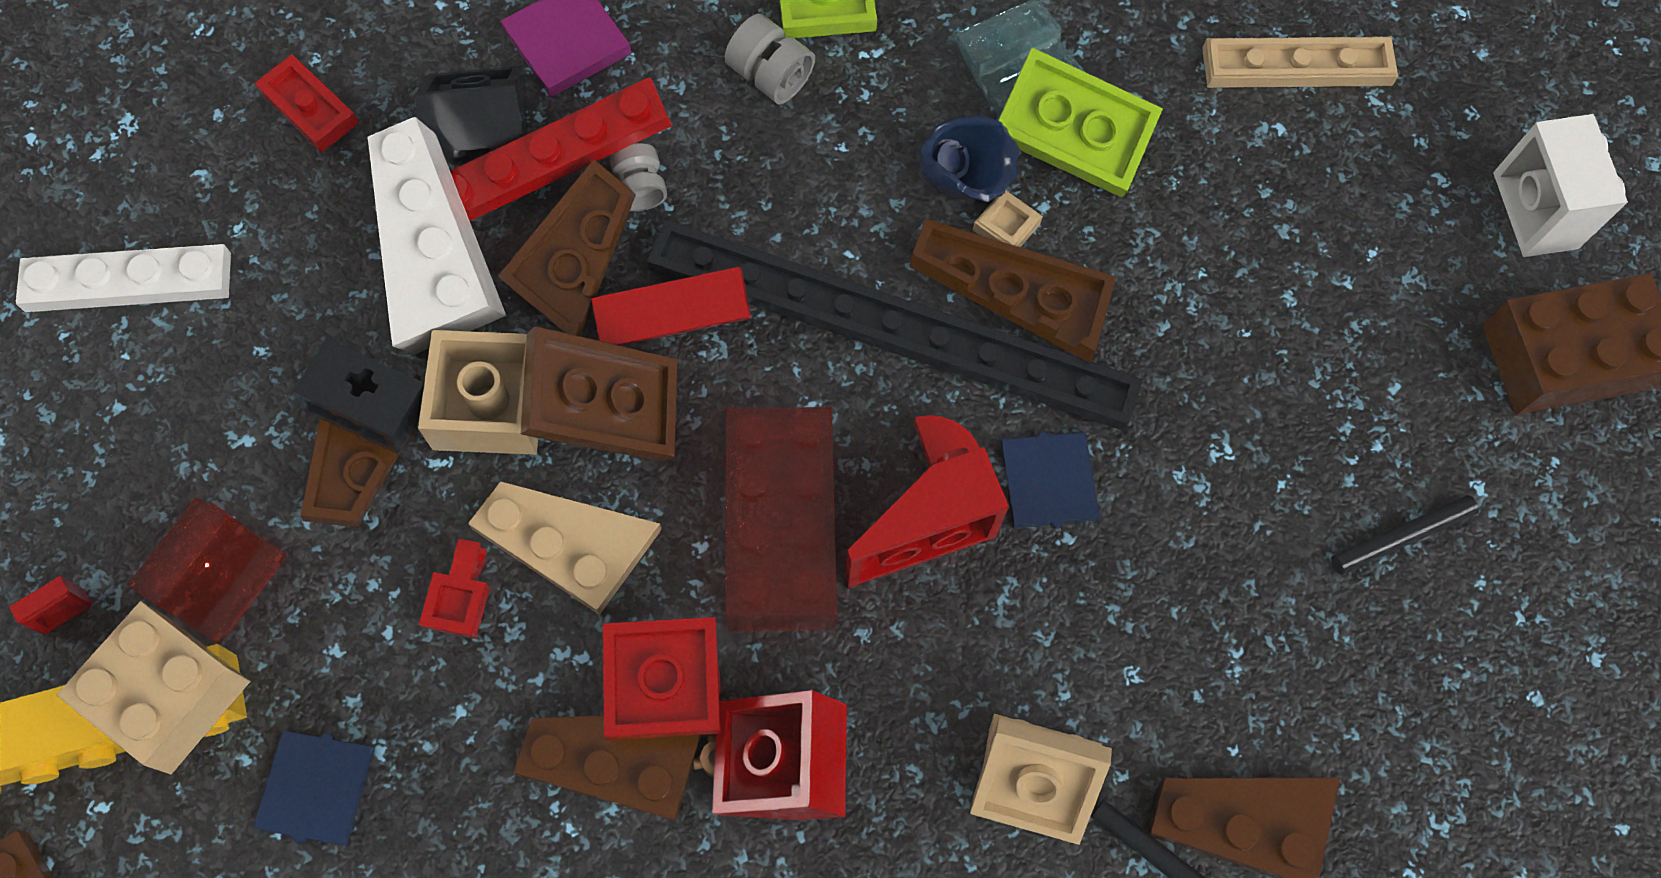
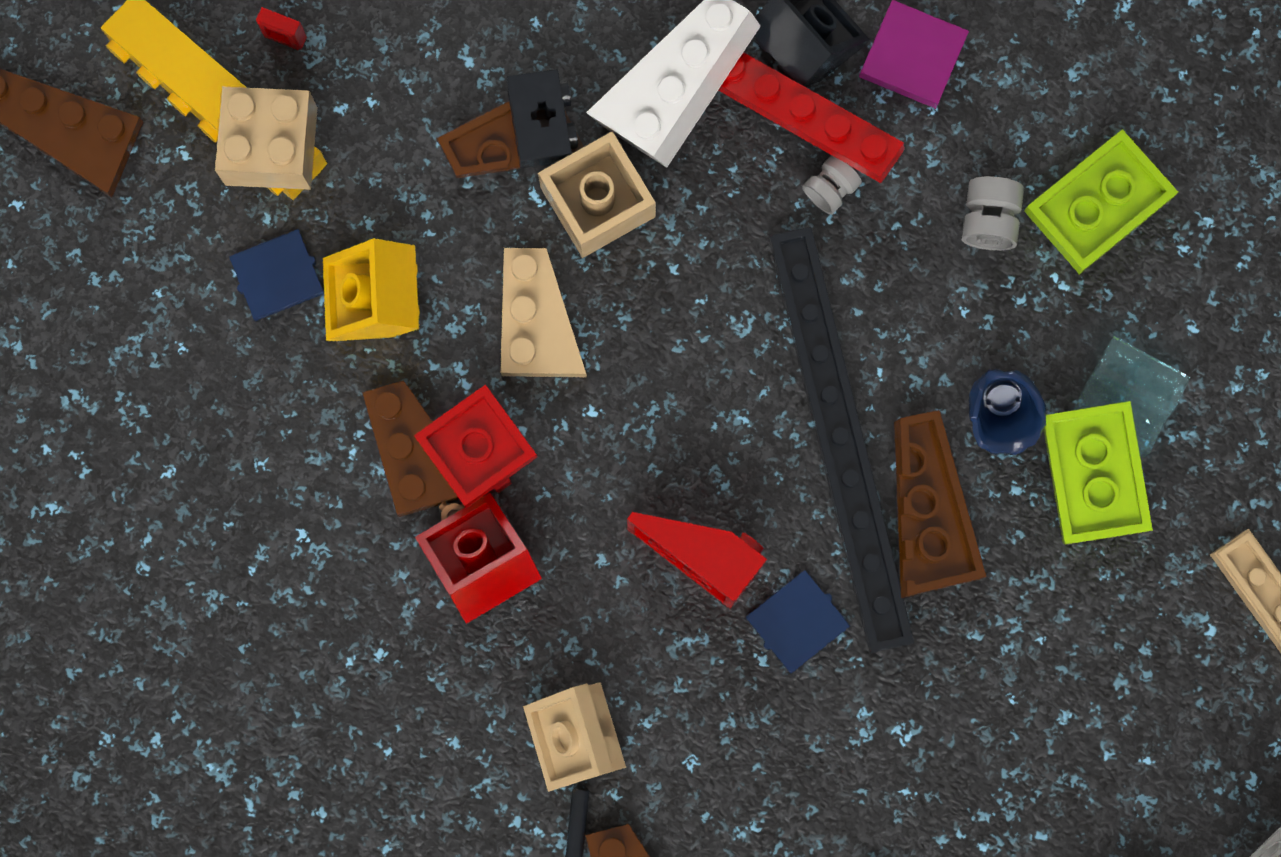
camera: 60 degrees right, 10 degrees up
(207, 570) = (366, 104): clear red bracket -> none
(409, 692) = (371, 291): none -> yellow slope
(458, 600) = (448, 277): red plate -> none
(571, 249) = (742, 178): reddish brown wing -> none
(599, 395) = (644, 274): reddish brown plate -> none
(672, 307) = (745, 277): red tile -> none
(780, 519) = (641, 451): clear red brick -> none
(941, 436) = (776, 529): red tile -> none
(1008, 220) = (981, 471): tan tile -> none

